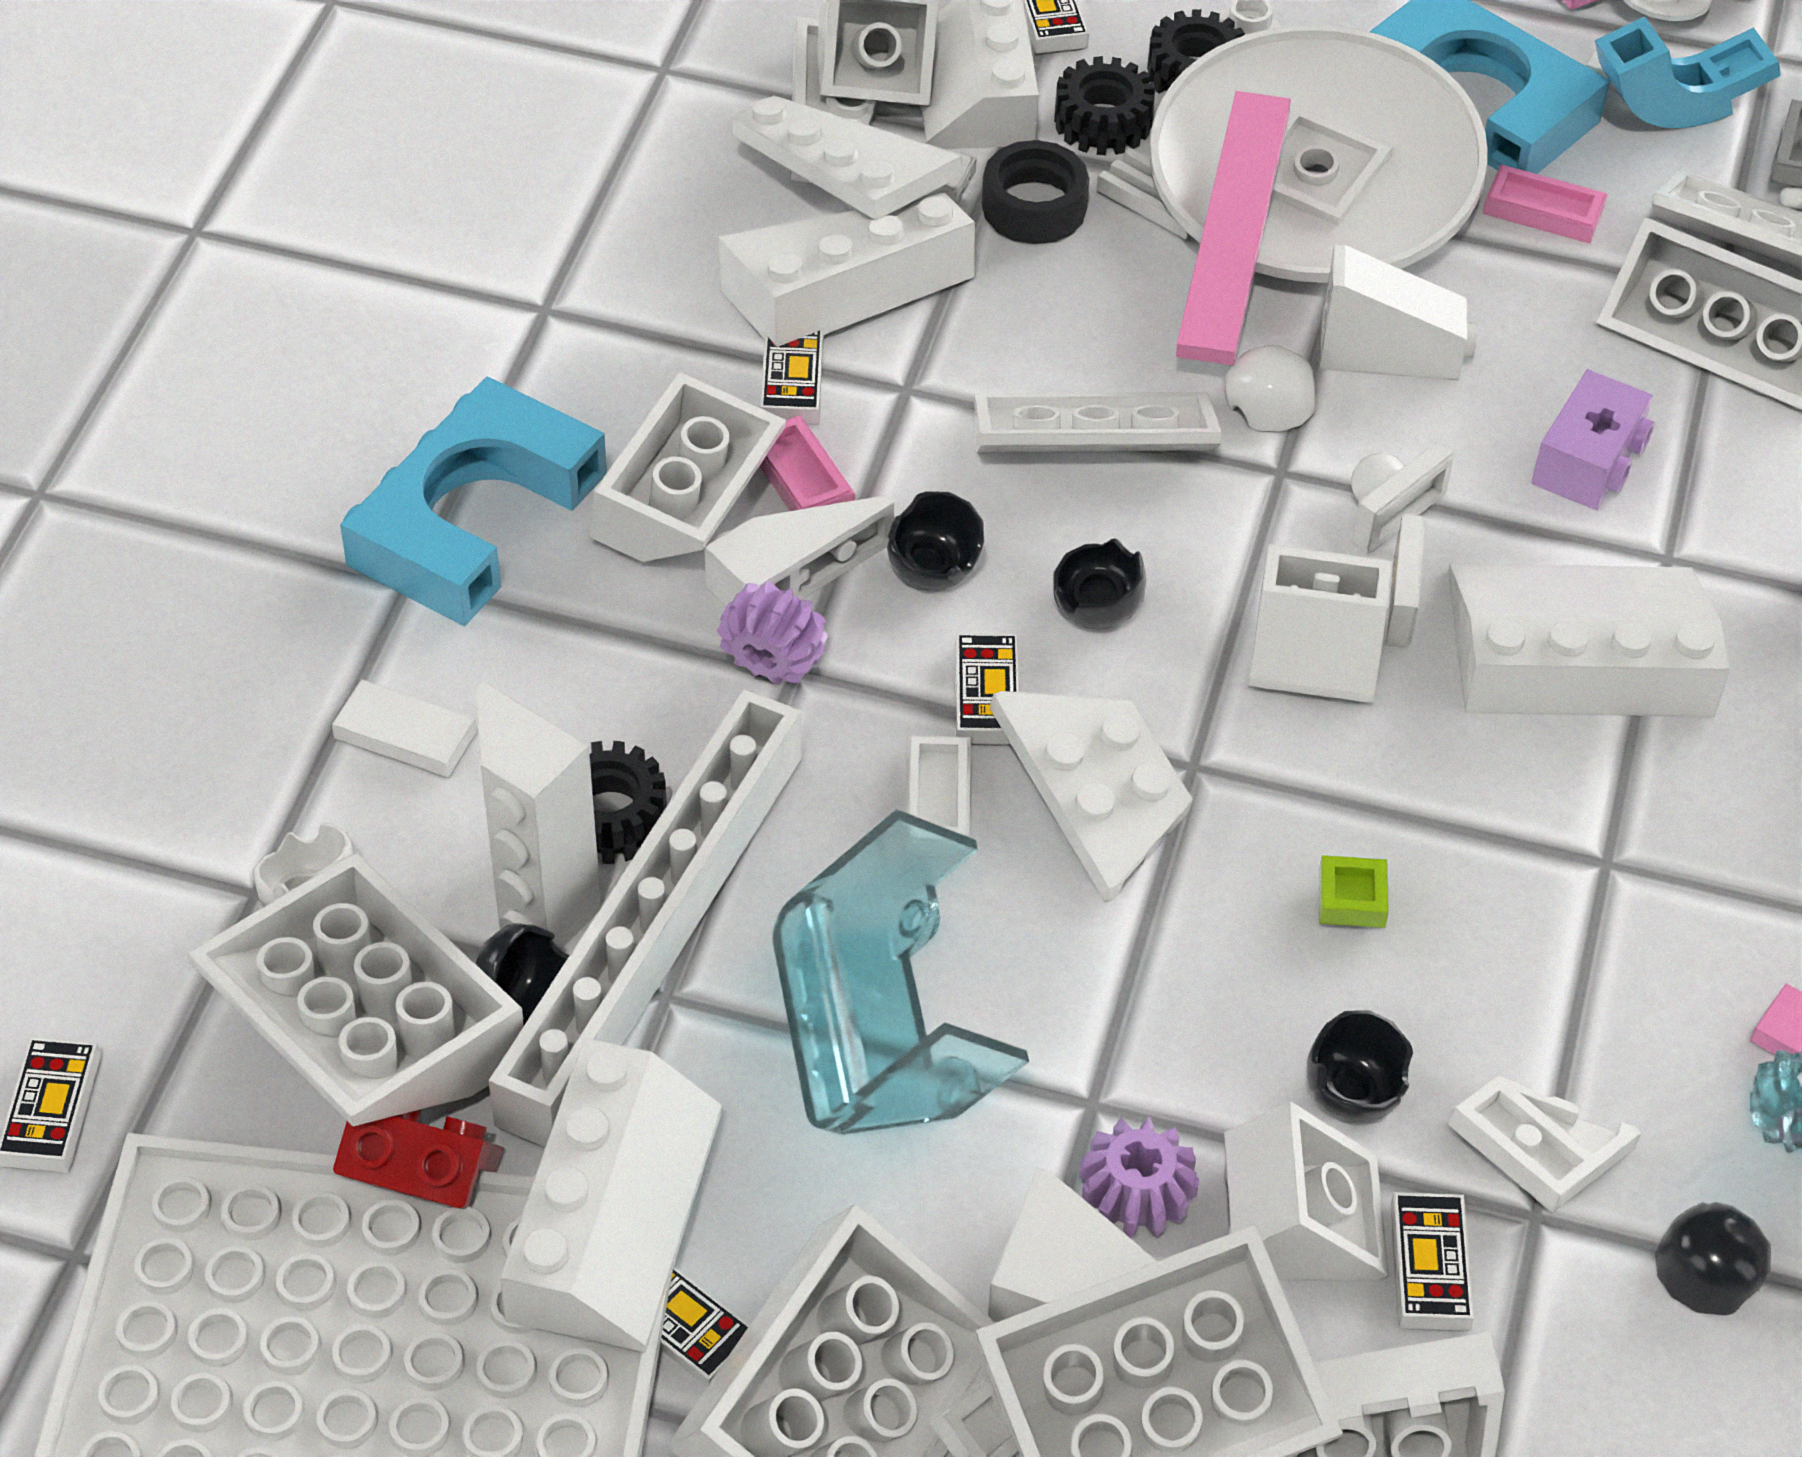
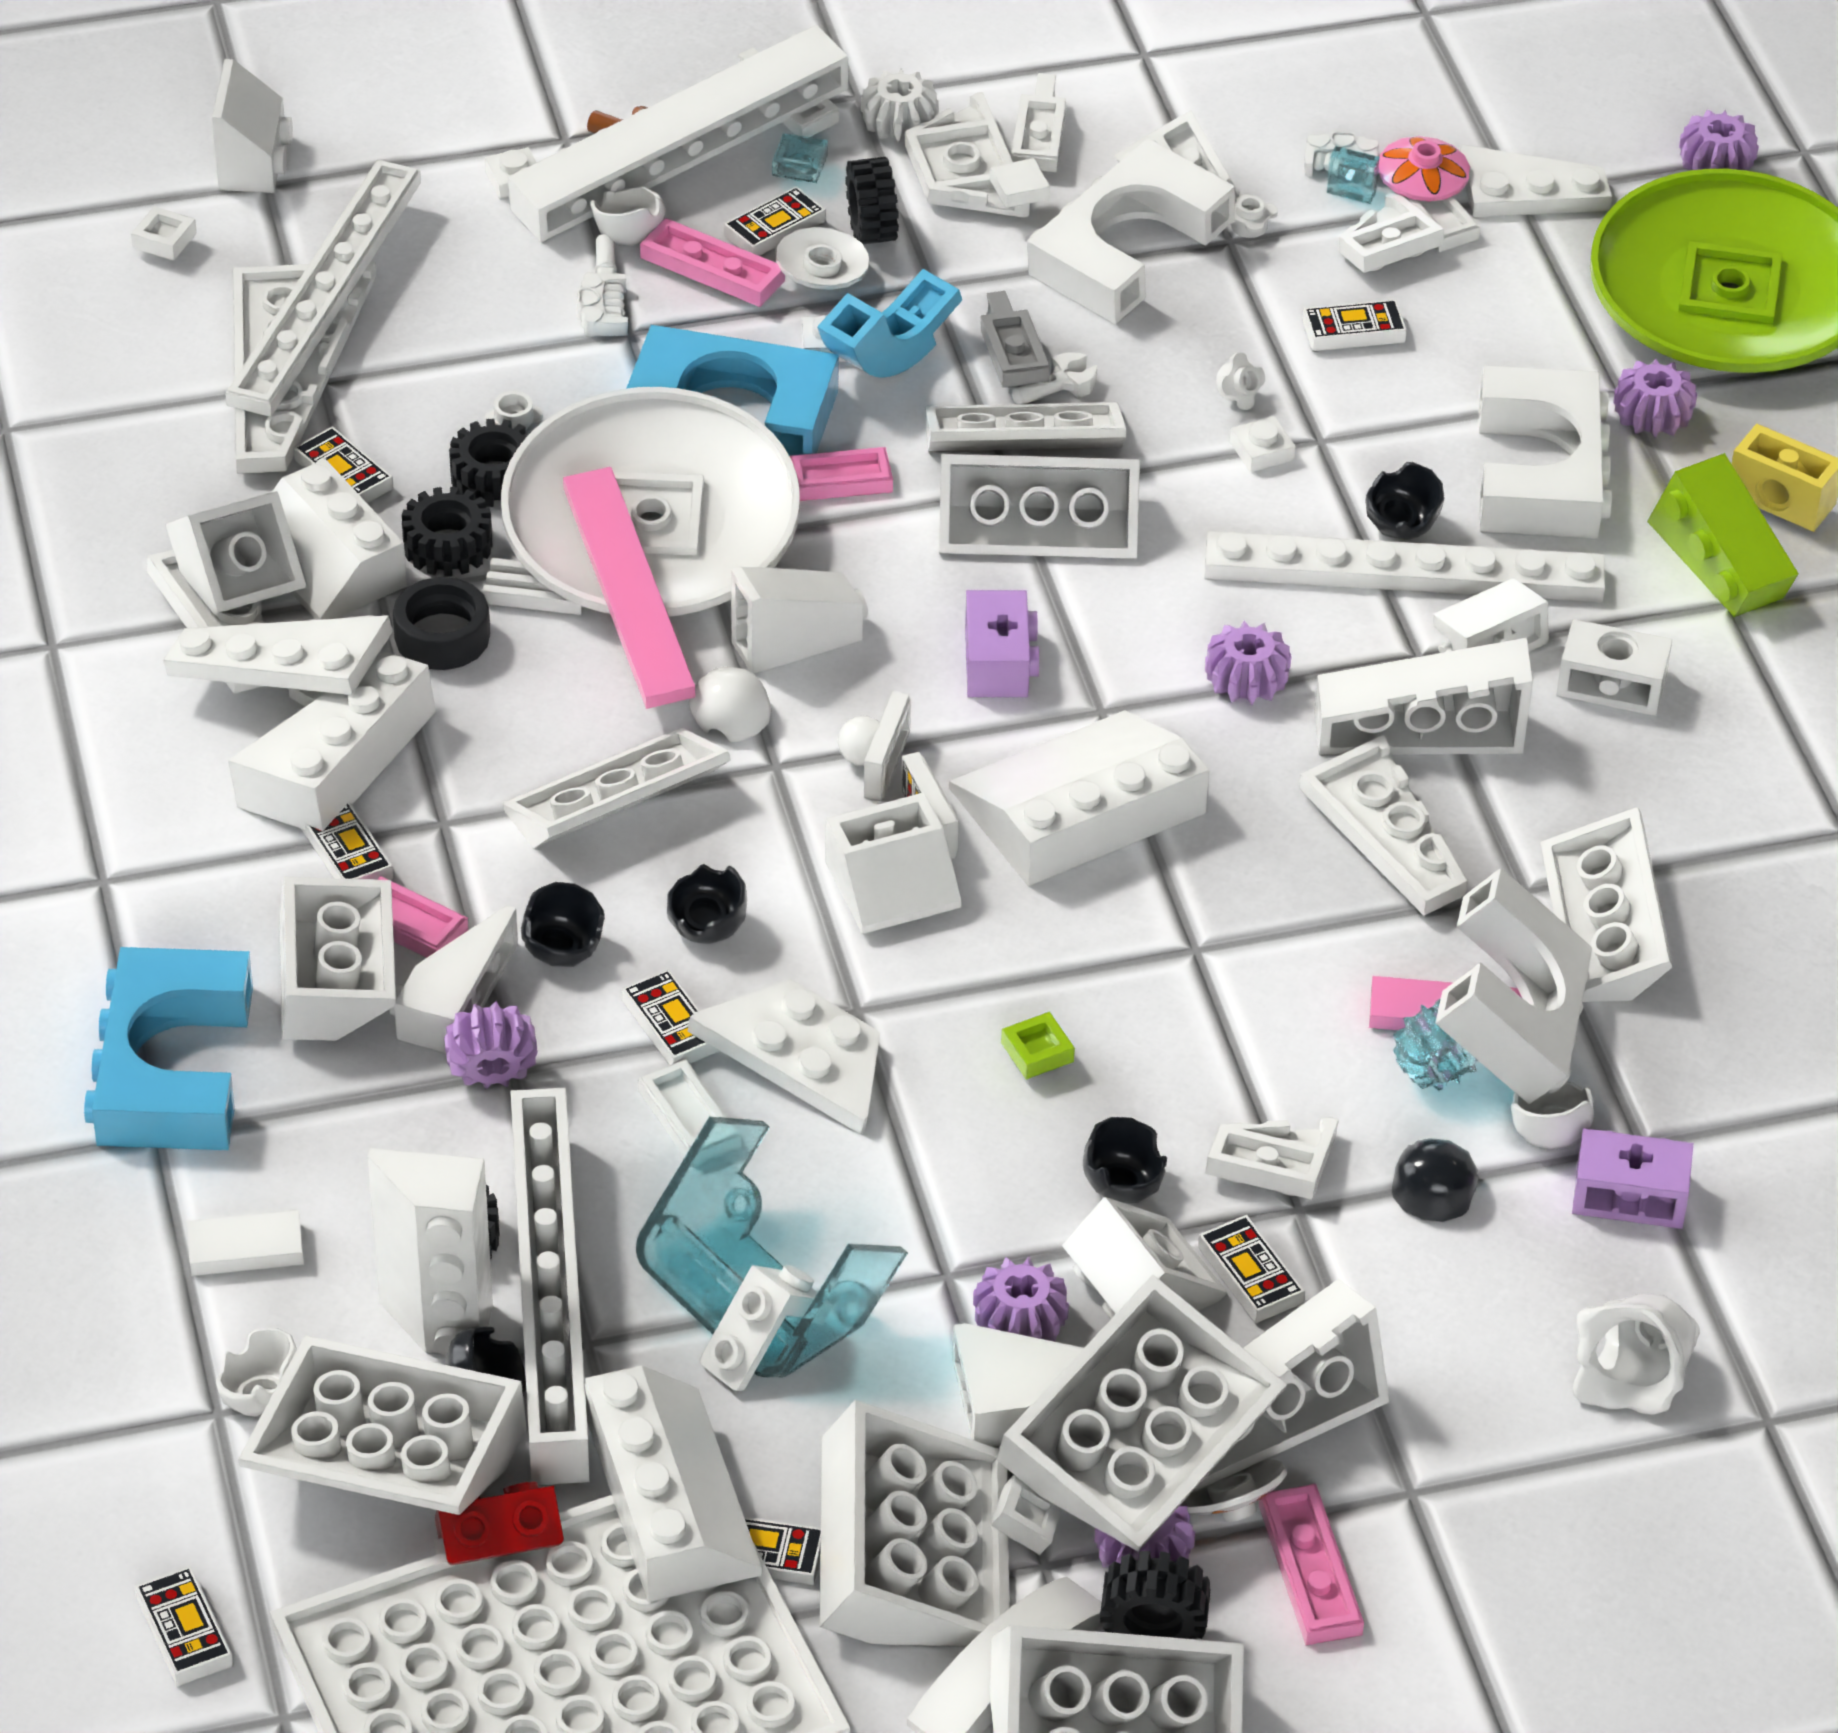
camera: 30 degrees left, 5 degrees down
(847, 1040) = (754, 1321): none -> white bracket

